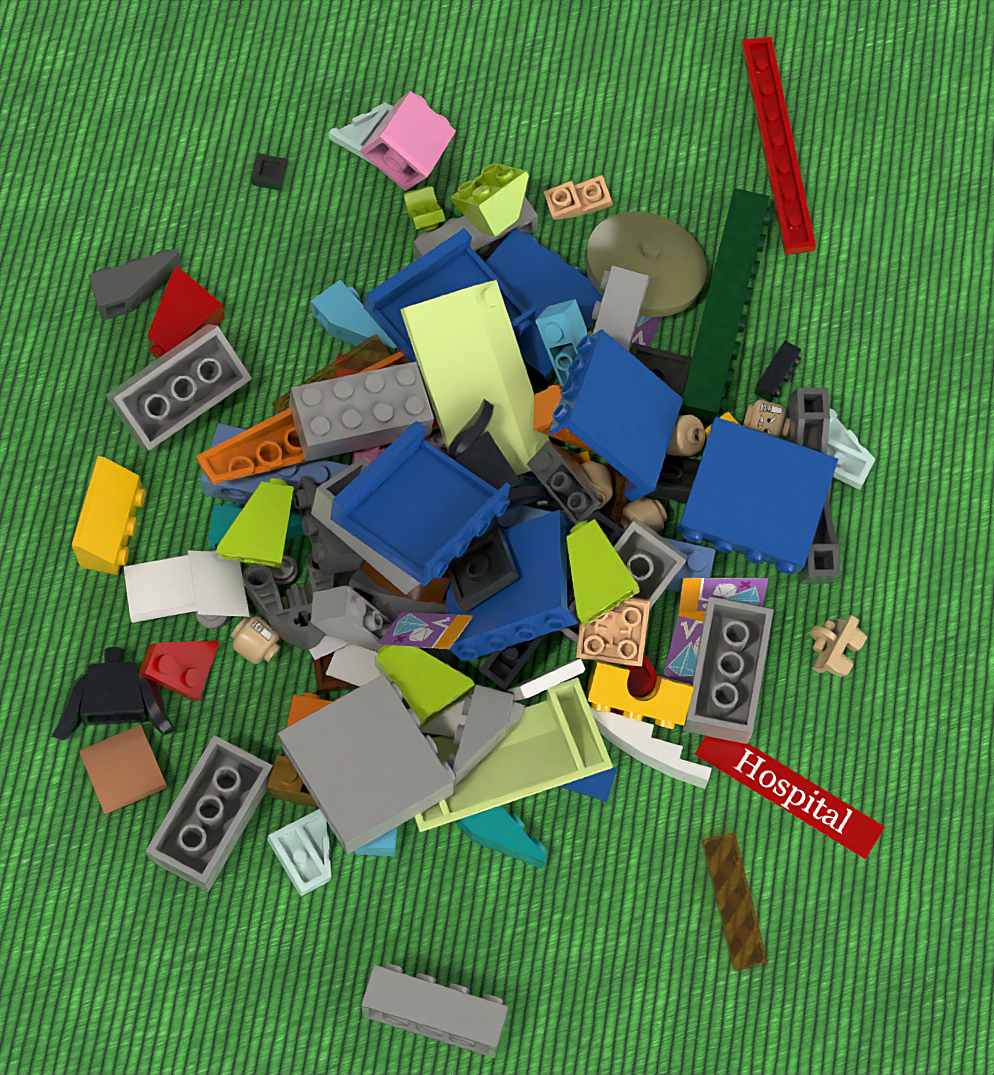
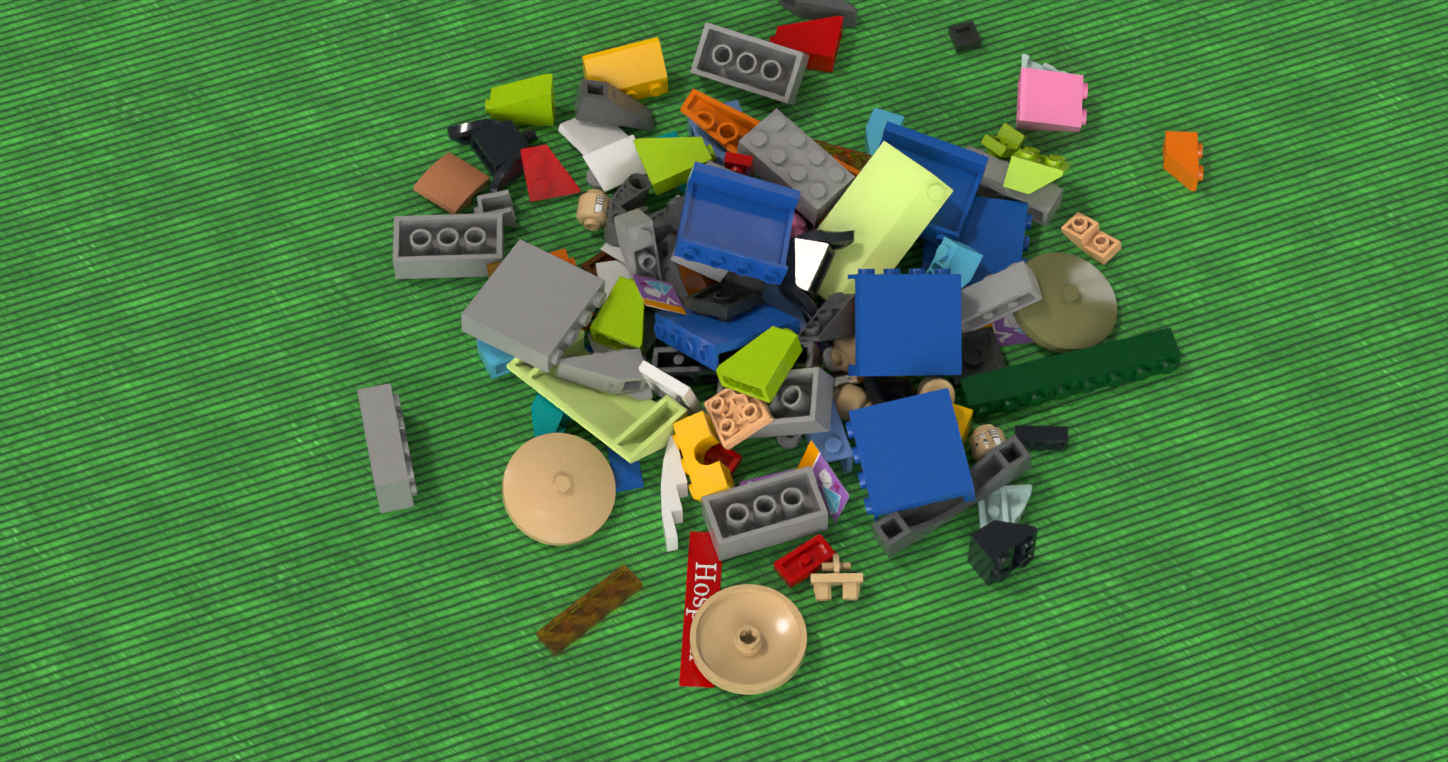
camera: 65 degrees right, 10 degrees down
(71, 639) = (524, 102): none -> lime slope
(139, 554) = (608, 105): none -> dark grey slope
(190, 741) = (497, 203): none -> light grey window
(287, 572) = (658, 202): light grey plate -> none
(304, 851) = (446, 323): light aqua wing -> none
(331, 465) = (739, 163): none -> red plate
(542, 67) = (1182, 157): none -> orange slope
(585, 857) = (558, 489): none -> tan dish
(778, 146) = (1238, 346): red plate -> none
(796, 662) = (804, 561): none -> red plate
(863, 763) = (748, 639): none -> tan dish
(895, 477) = (1001, 549): none -> black slope

